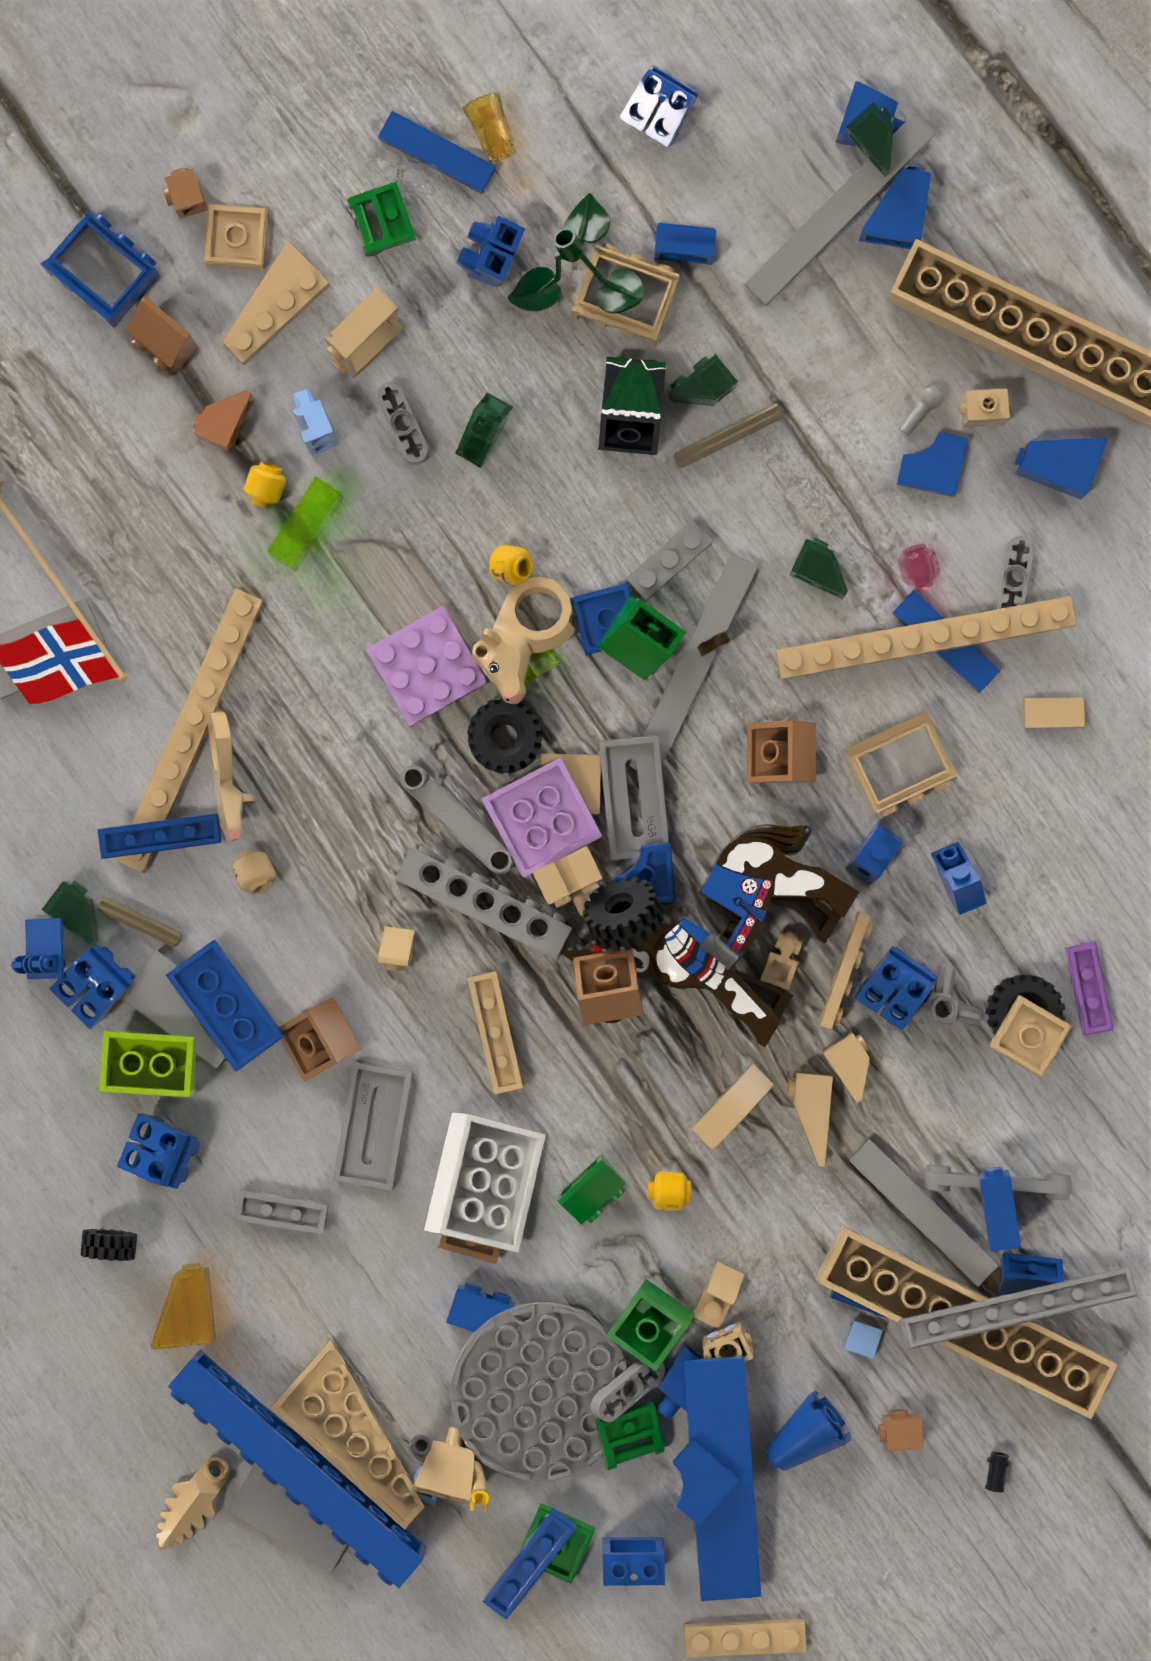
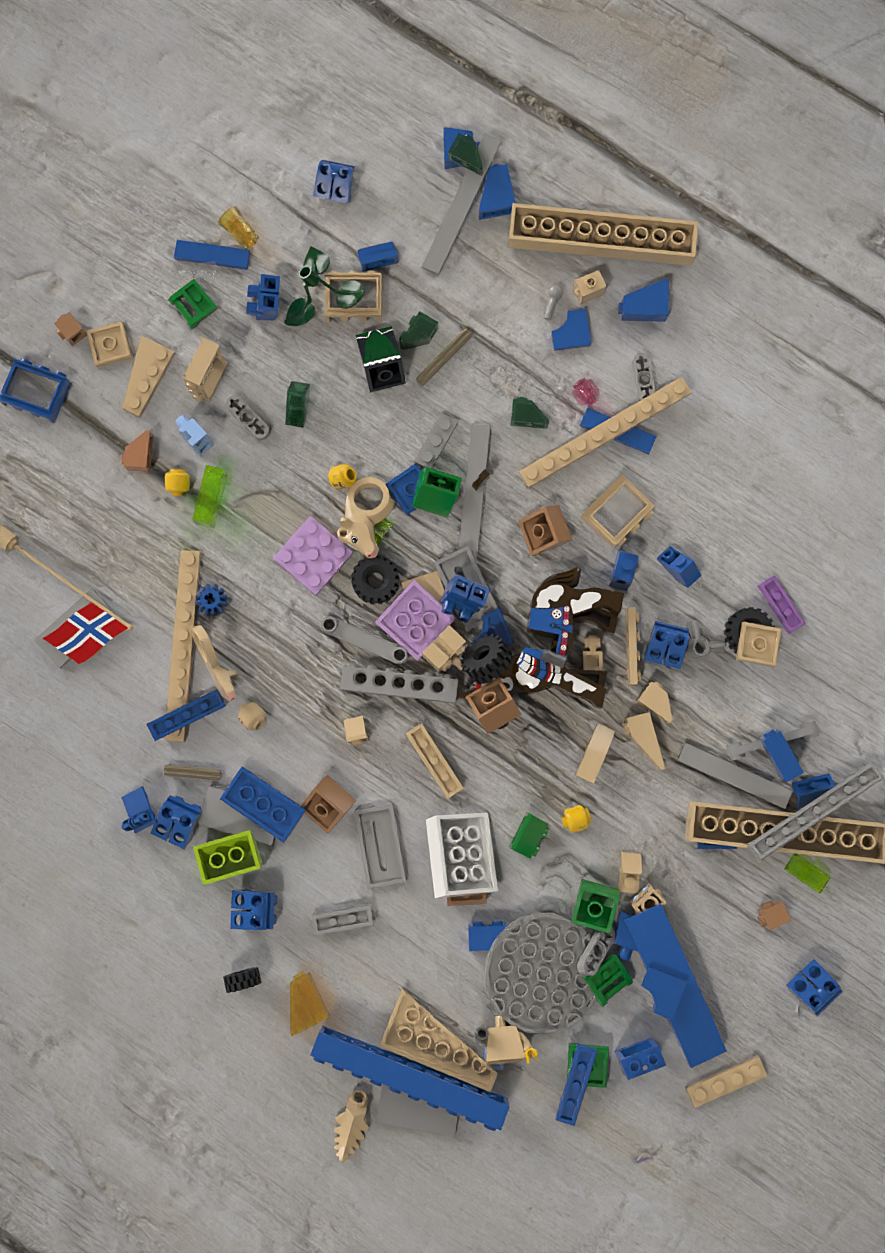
camera: 20 degrees left, 5 degrees down
(75, 908) = (150, 779): clear green slope -> none
(161, 336) = (83, 416): medium nougat slope -> none
(243, 681) = (205, 605): none -> blue gear
(625, 810) = (463, 597): none -> blue hips
(807, 1434) = (716, 938): blue cone -> none
(863, 1339) = (727, 866): light blue tile -> none
(924, 1570) = (816, 998): none -> blue hips
(974, 1390) = (807, 873): none -> clear neon green slope
(997, 1471) = (840, 918): black pin -> none
(1053, 713) = (697, 449): tan tile -> none

